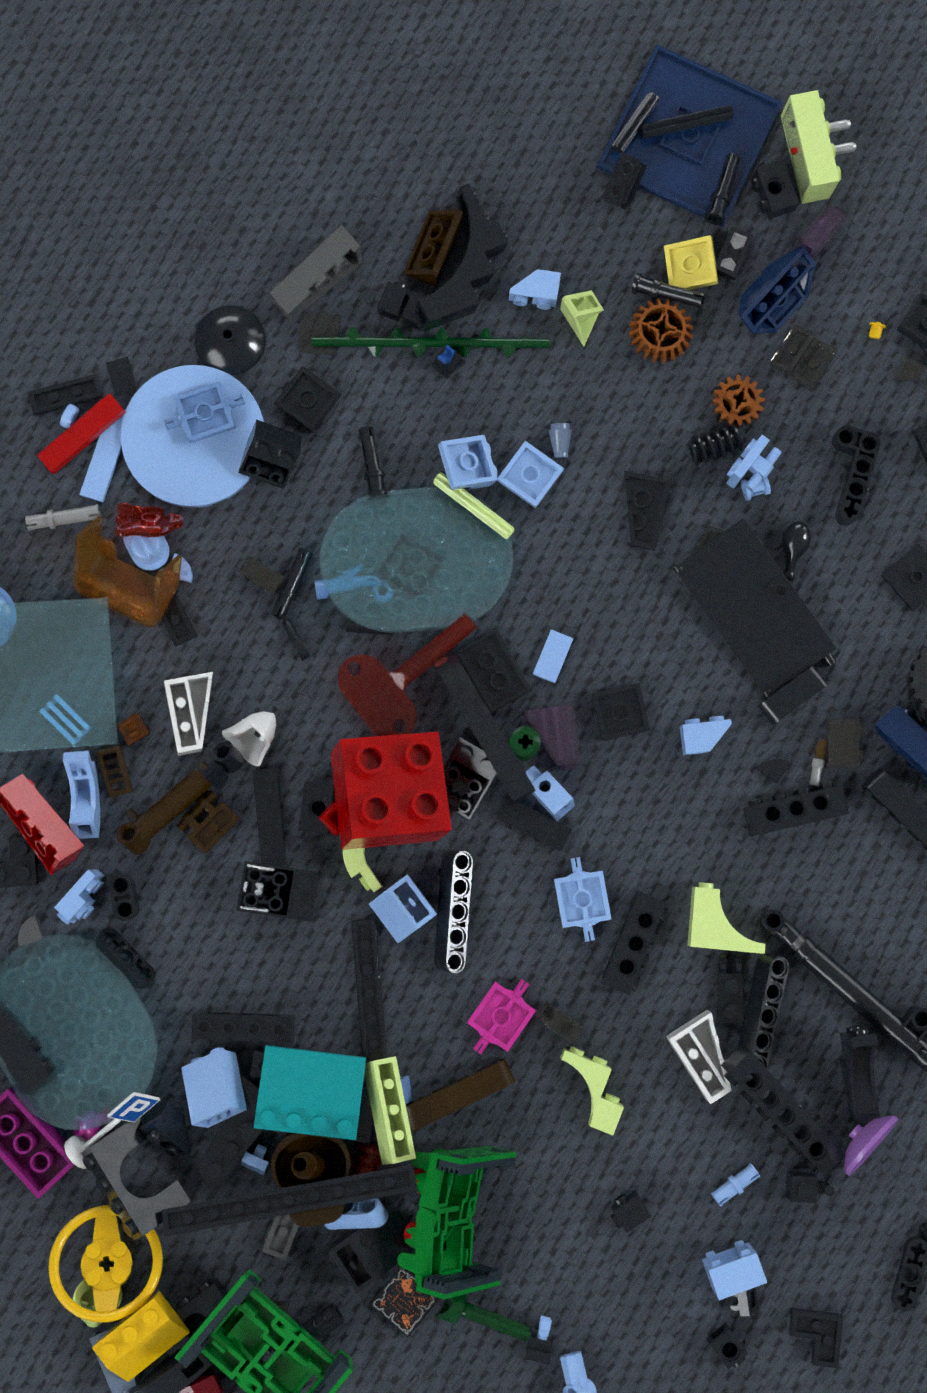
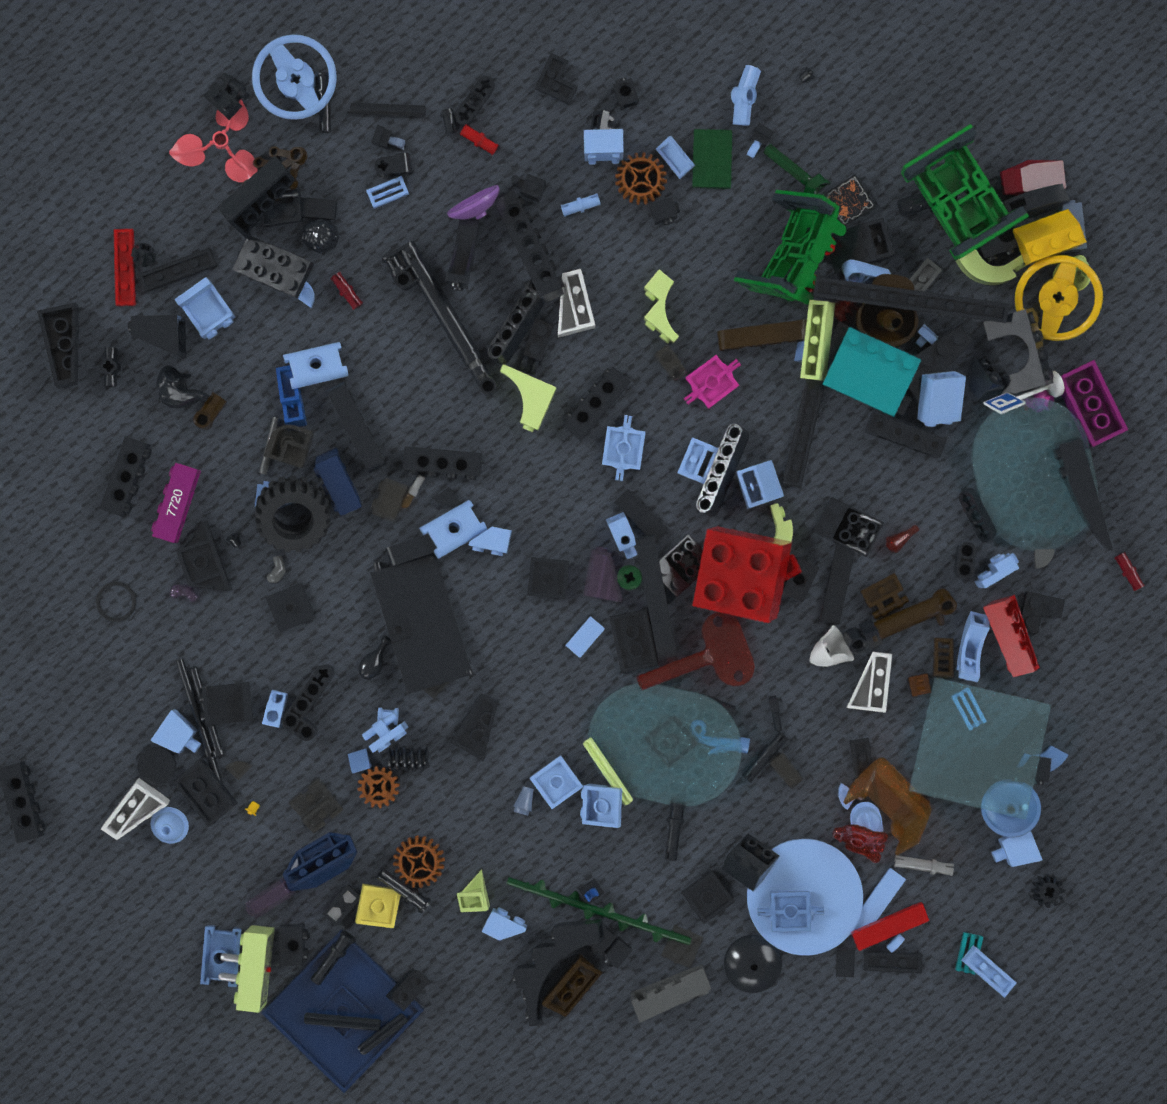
camera: 160 degrees left, 5 degrees up
(210, 1264) = (981, 272): none -> yellowish green arch
(213, 893) = (897, 541): none -> clear red cone
(492, 913) = (694, 458): none -> light blue plate
(591, 1298) = (712, 158): none -> dark green tile
(638, 1285) = (675, 157): none -> light blue tile
(676, 1232) = (629, 191): none -> dark orange gear
(751, 751) = (460, 517): none -> light blue piece
(770, 424) = (359, 761): none -> medium blue slope
(860, 165) = (219, 942): none -> medium blue piece
(888, 1226) = (479, 139): none -> red pin
(891, 452) = (275, 709): none -> light blue leg

